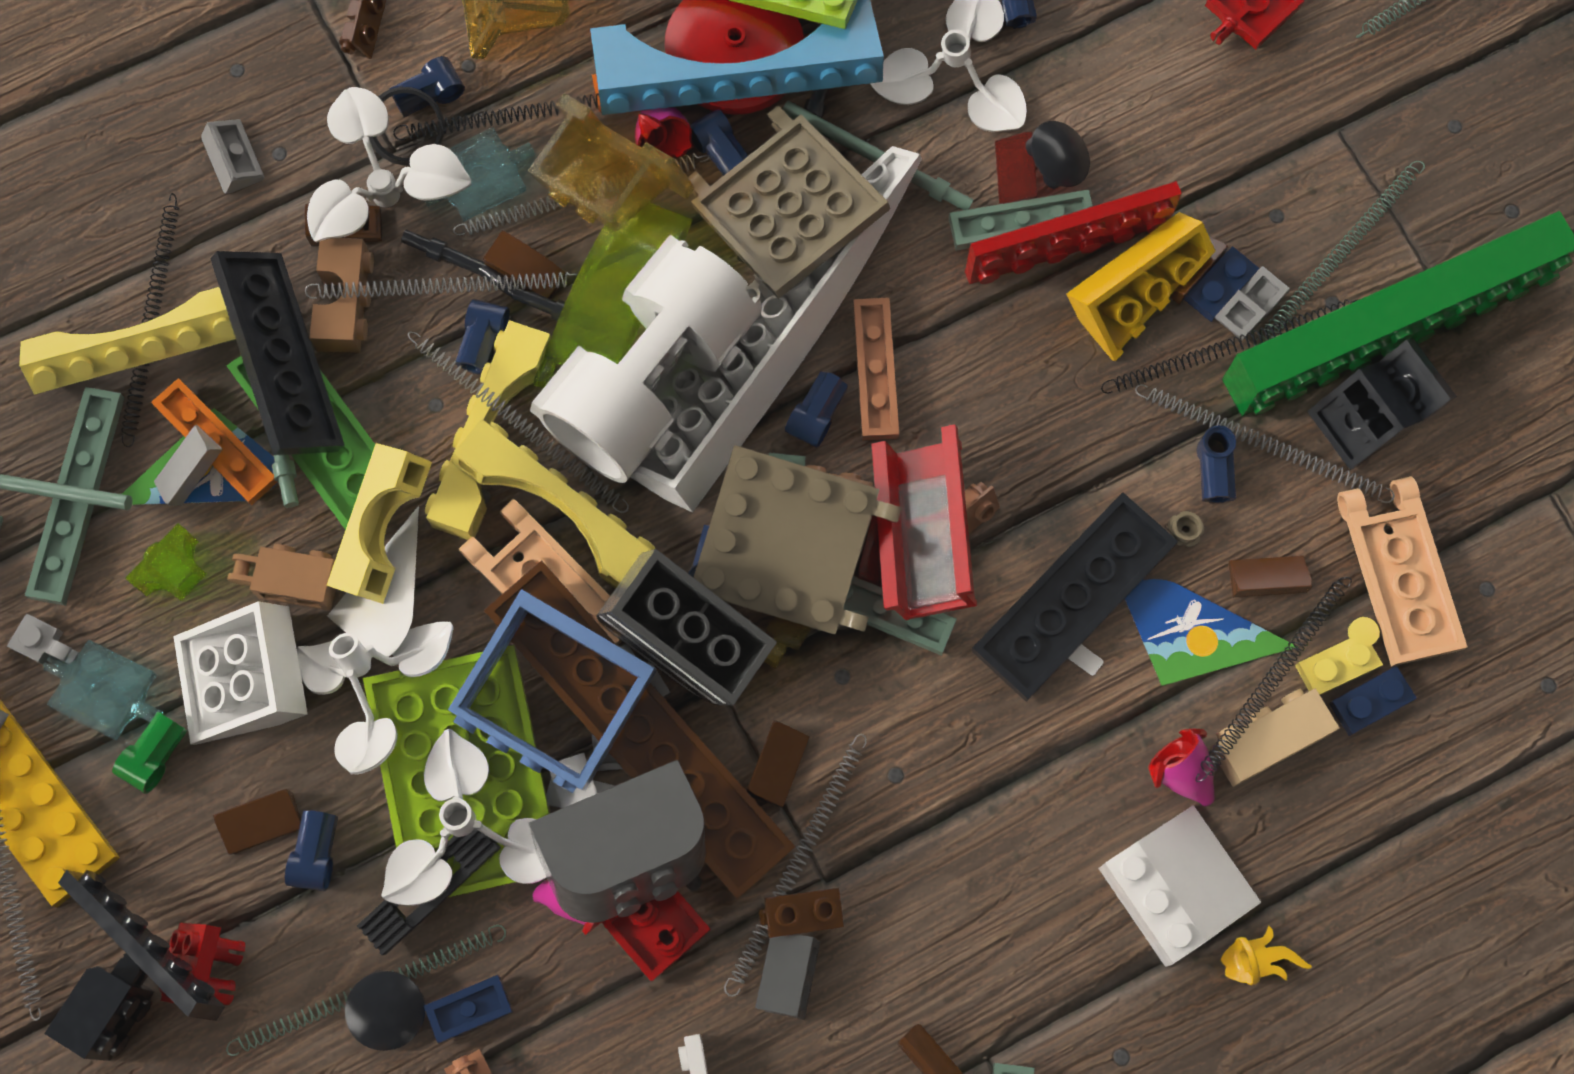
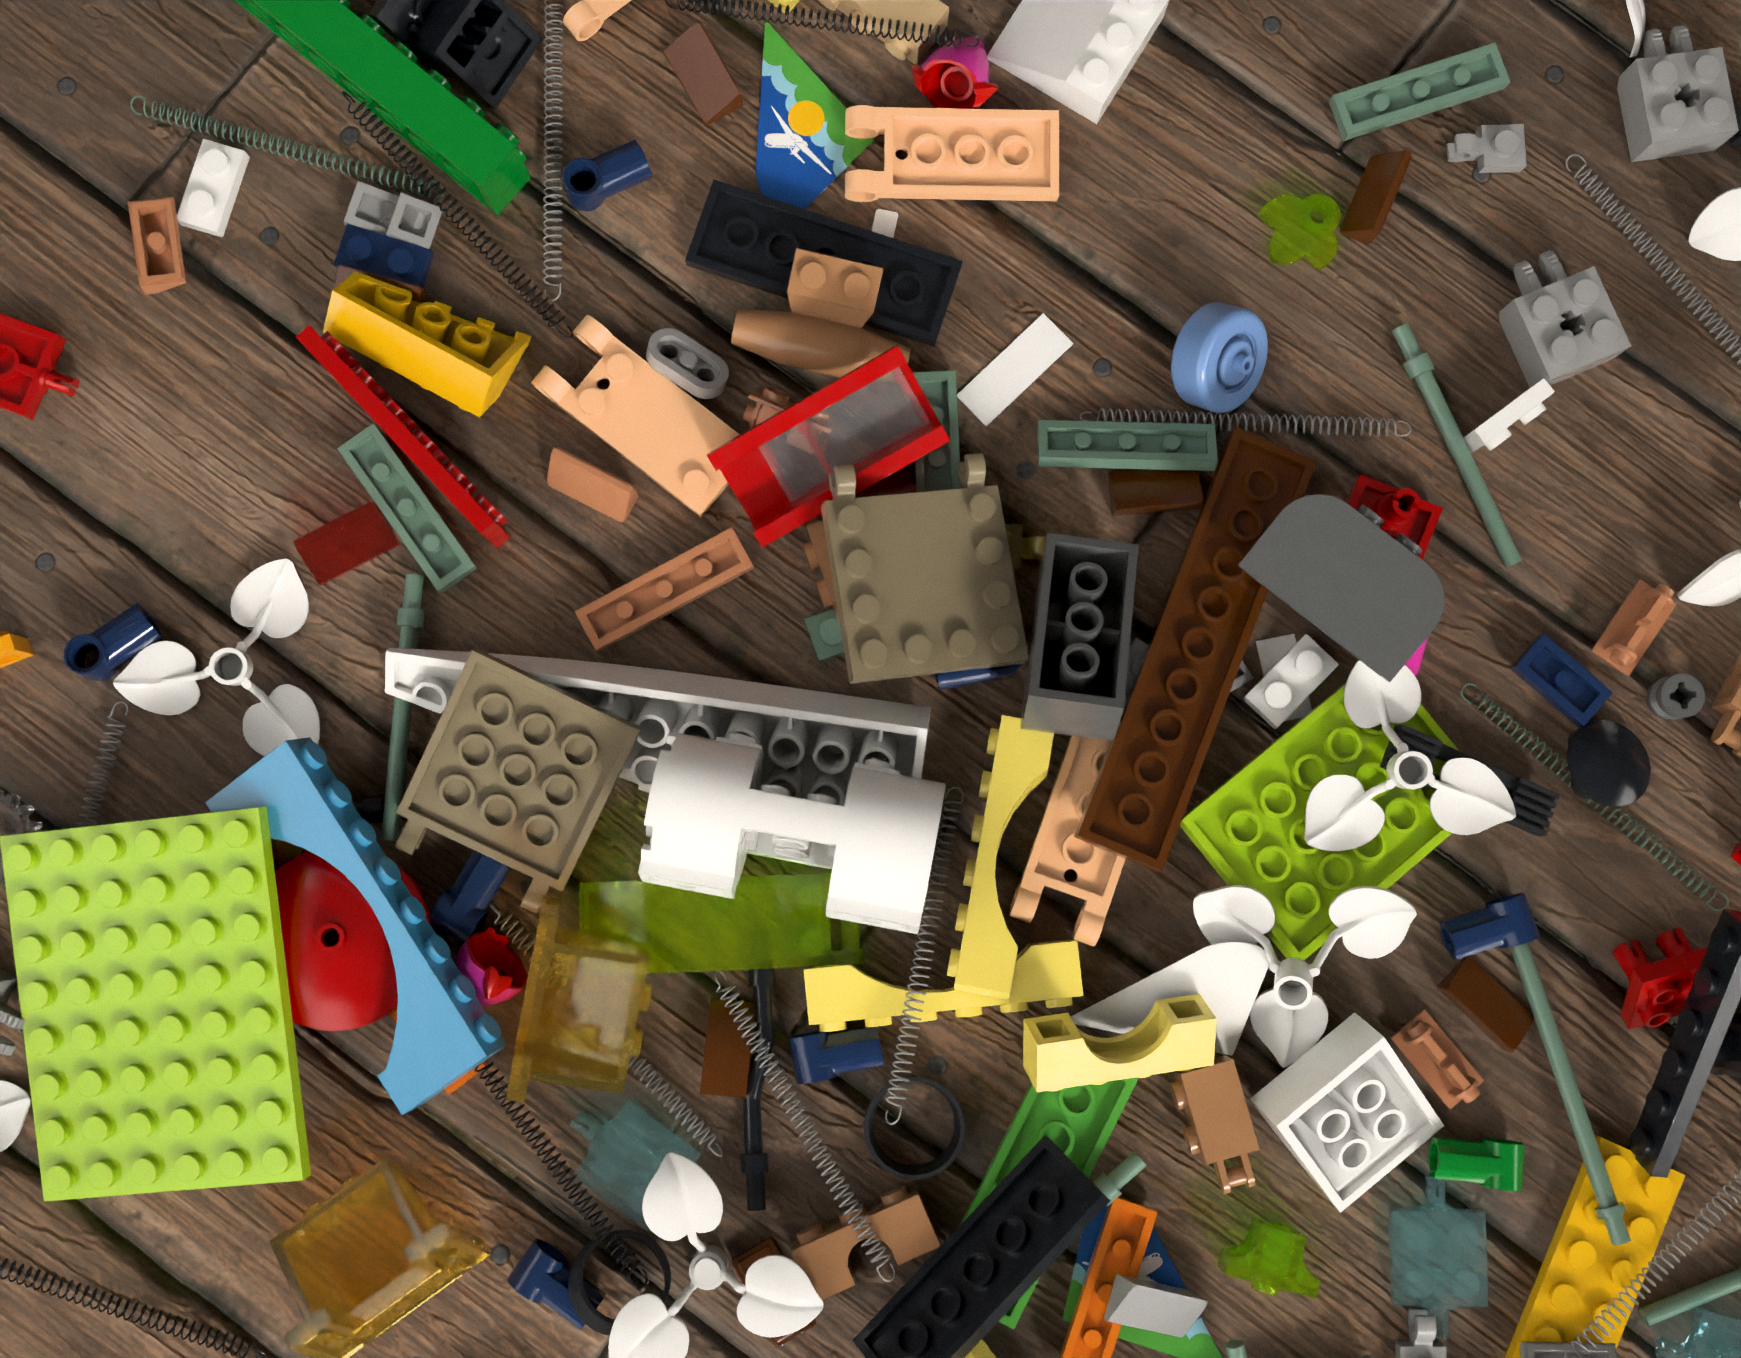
camera: 120 degrees left, 10 degrees up
(62, 827) = (1609, 1208): none -> sand green bar
(239, 763) = (1438, 1060): none -> nougat hinge
(383, 338) = (928, 1169): none -> black tyre
(502, 738) = (1290, 738): medium blue window -> none
(775, 1026) = (1420, 367): none -> sand green bar
(788, 975) = (1364, 376): dark grey hinge -> none
(802, 912) = (1302, 385): reddish brown hinge -> none
(813, 417) = (756, 631): dark blue piece -> none
(822, 756) = (1126, 445): none -> sand green plate
(858, 859) = (1219, 357): none -> medium blue wheel
(925, 706) = (1014, 369): none -> white sticker
(931, 984) = (1297, 233): none -> clear neon green plate
(980, 353) = (590, 485): none -> nougat slope
(1016, 411) = (644, 418): none -> light nougat hinge
(1026, 571) = (824, 330): none -> medium nougat plate
(1039, 460) = (688, 363): none -> light grey plate
(1059, 154) = (308, 499): black dish -> none
(1117, 742) = (957, 154): none -> light nougat hinge
(1189, 520) = (691, 170): dark tan plate -> none
(1300, 133) = (157, 244): none -> nougat slope
(1329, 190) = (212, 188): none -> white plate

